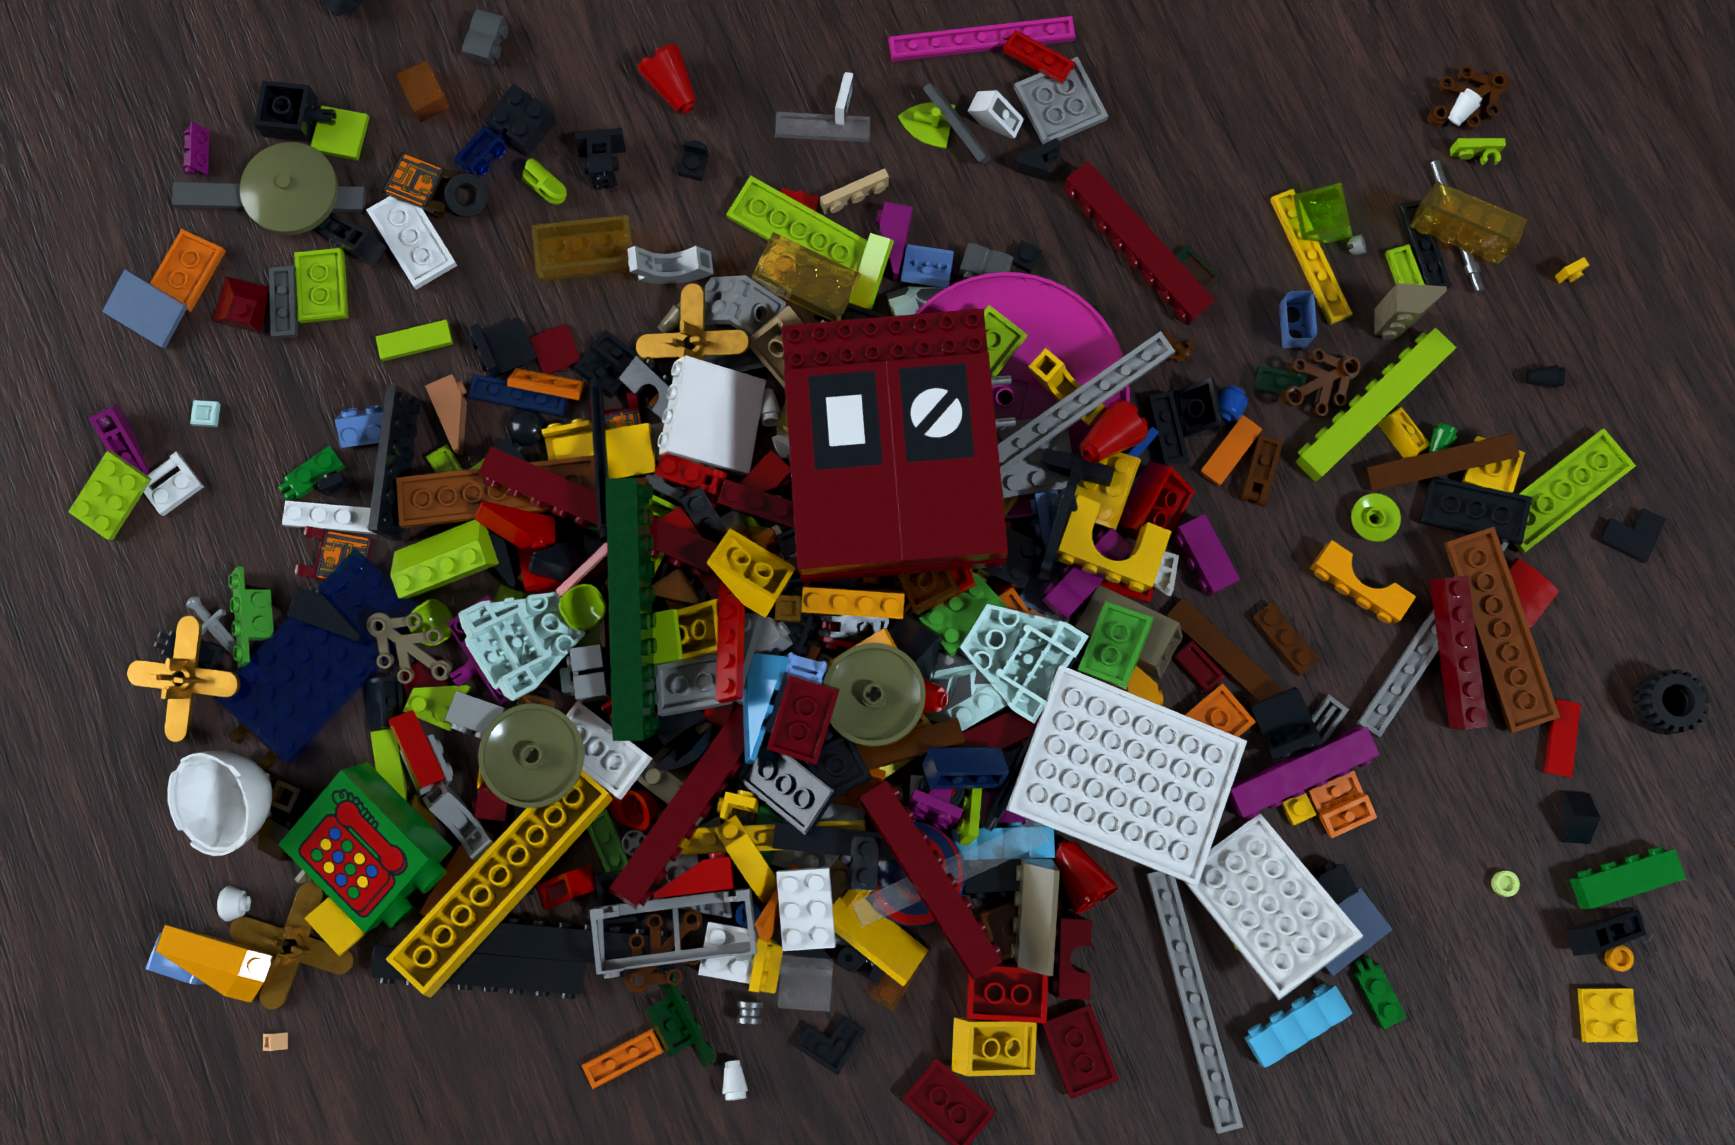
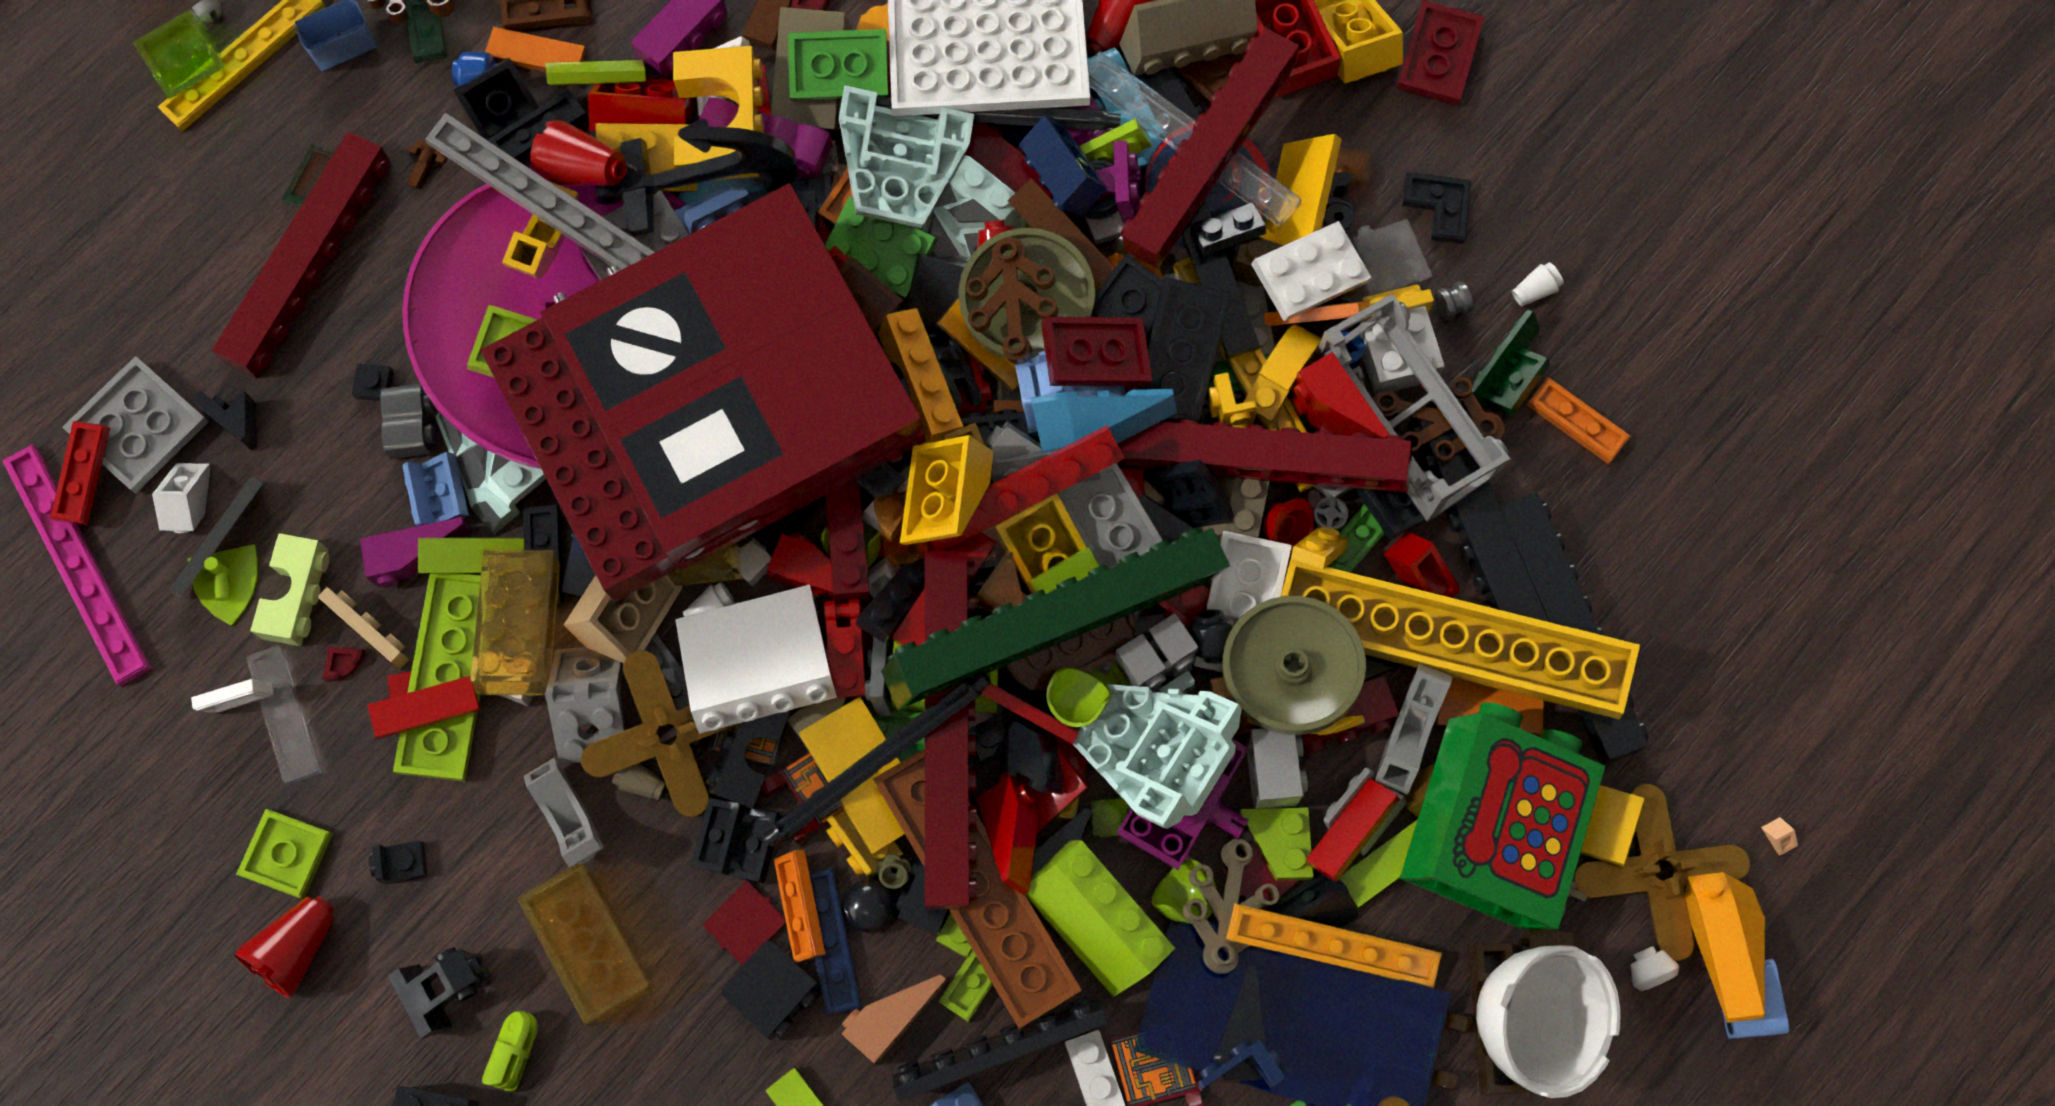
camera: 110 degrees left, 5 degrees down
(290, 614) = (1267, 1063): none -> dark blue bracket
(351, 701) = (1333, 945): none -> light orange tile
(537, 448) = (889, 878): none -> olive plate
(585, 715) = (1210, 634): none -> black head
(609, 819) = (1320, 547): none -> yellow plate
(732, 98) = (284, 854): none -> lime tile
(781, 204) = (423, 707): none -> red tile
(840, 172) = (341, 662): none -> dark red tile
(871, 680) = (1011, 293): none -> reddish brown plant
(915, 169) = (288, 617): none -> yellowish green arch
(1193, 482) = (595, 72): none -> lime tile

